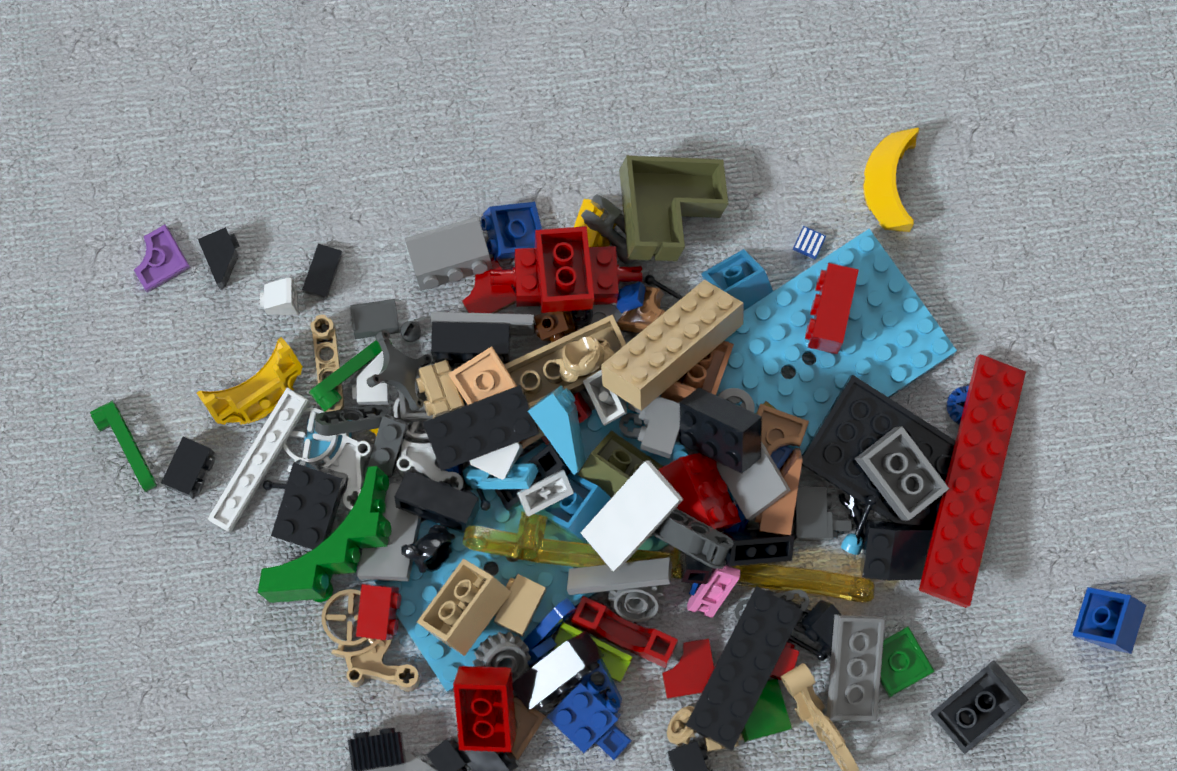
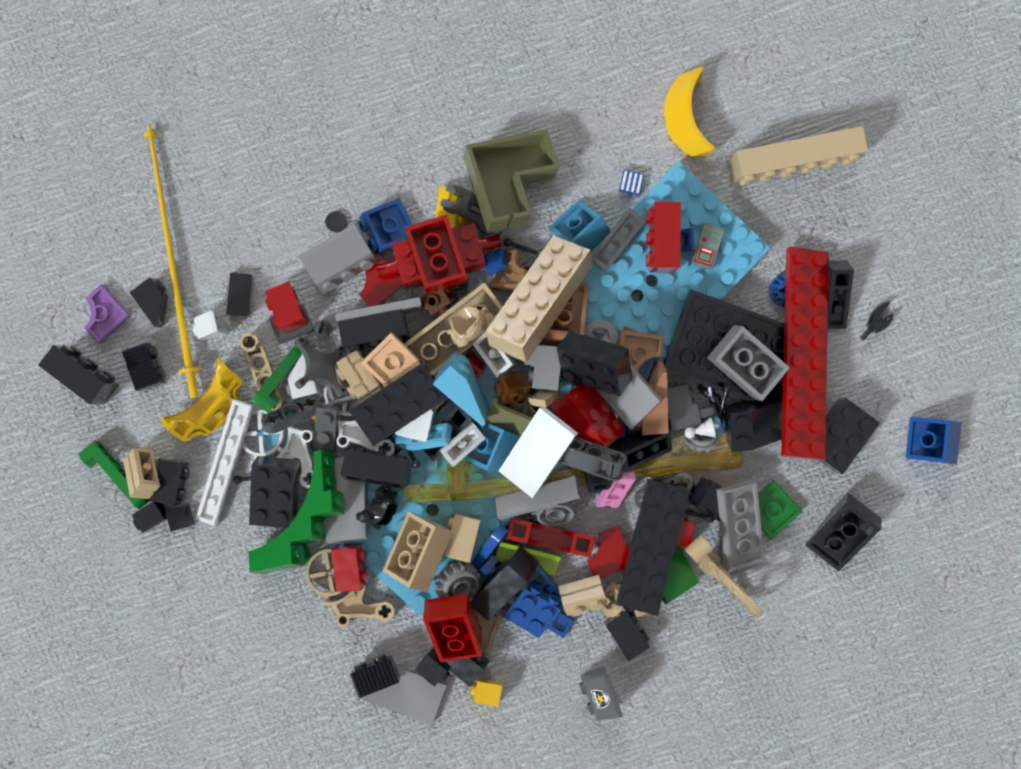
camera: 15 degrees left, 10 degrees up
(117, 318) = (79, 374): none -> black brick
(155, 504) = (149, 517): none -> black brick
(159, 448) = (141, 473): none -> tan brick
(189, 514) = (180, 518): none -> black slope
(191, 328) = (143, 366): none -> black brick
(244, 343) = (189, 369): none -> yellow piece
(374, 297) = (285, 307): none -> red brick
(454, 212) = (336, 221): none -> pearl dark grey piece
(618, 439) = (512, 387): none -> reddish brown brick
(648, 710) = (583, 595): none -> tan brick
(657, 460) = (544, 398): none -> tan tile
(778, 301) = (617, 239): none -> dark grey plate
(830, 557) = (698, 443): none -> light grey gear
(836, 543) = (706, 429): none -> white piece
(858, 319) = (687, 240): none -> blue slope
(882, 331) = (707, 246): none -> sand green tile
(1002, 588) = (846, 434): none -> black brick
(1009, 252) = (798, 155): none -> tan brick
(1027, 423) = (839, 283): none -> black slope
(1067, 467) = (875, 322): none -> black hand

